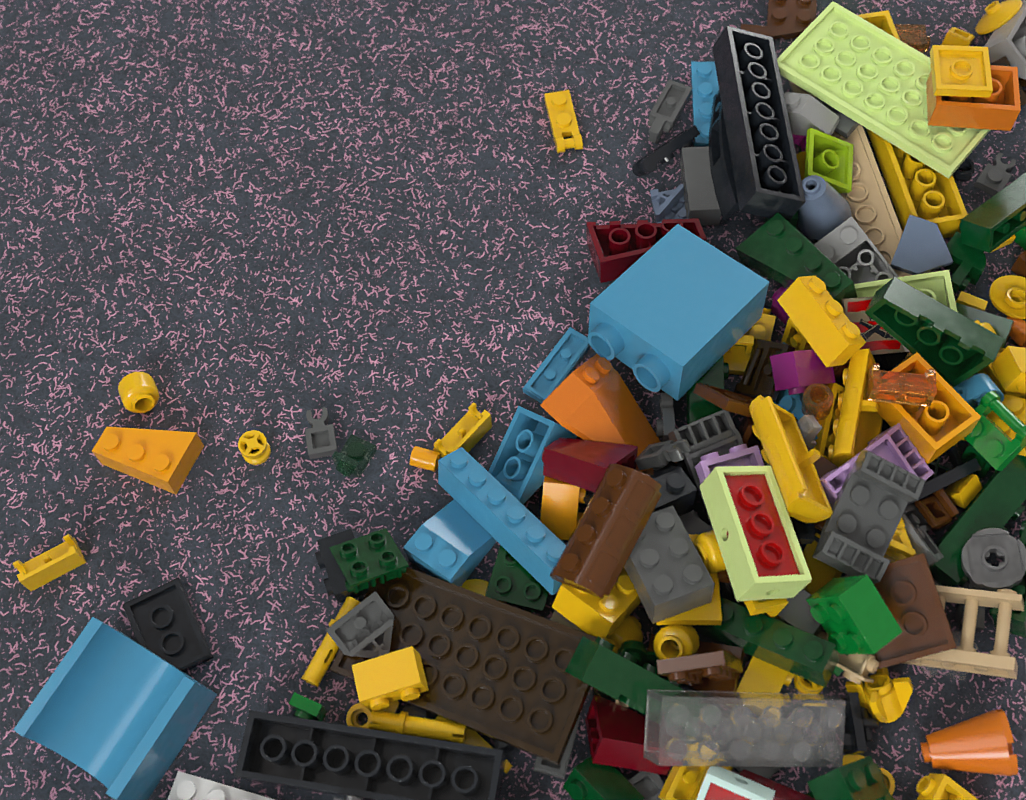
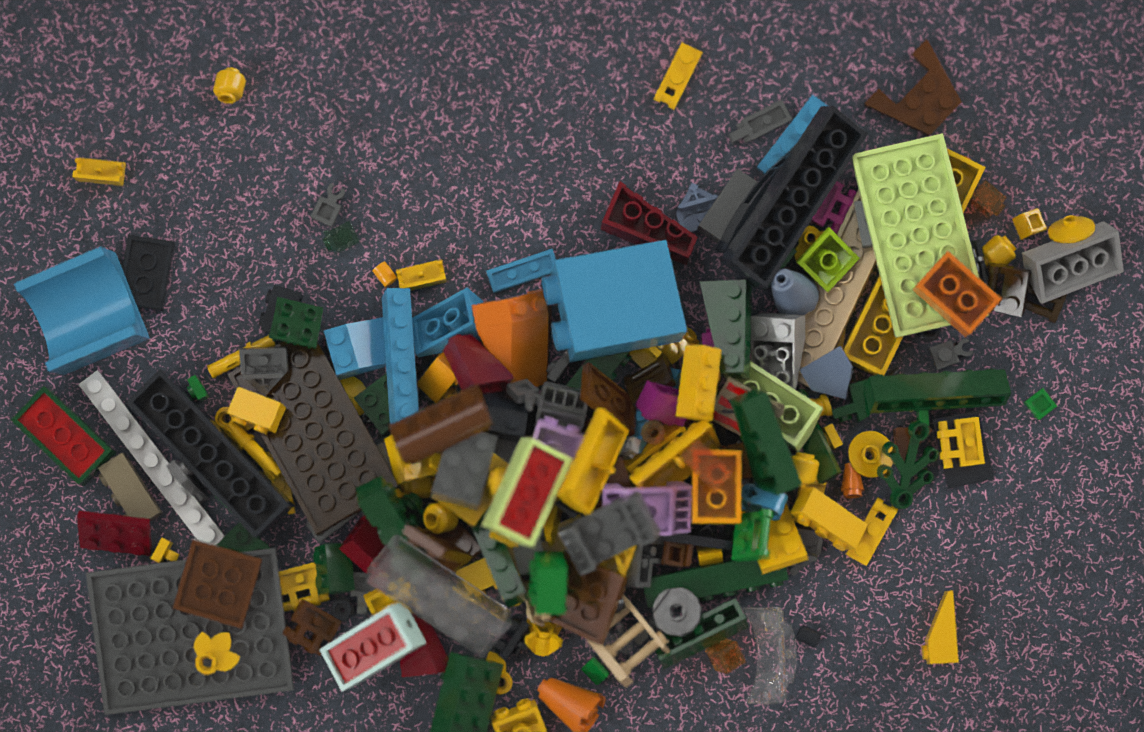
camera: 30 degrees right, 20 degrees up
(150, 455) = (207, 141): light orange wedge -> none
(254, 440) = (277, 179): yellow wheel -> none
(665, 152) = (728, 159): black plate -> none
(807, 113) = (843, 213): light grey slope -> none
(961, 71) = (952, 275): yellow plate -> none
(962, 693) = (595, 671): none -> green slope

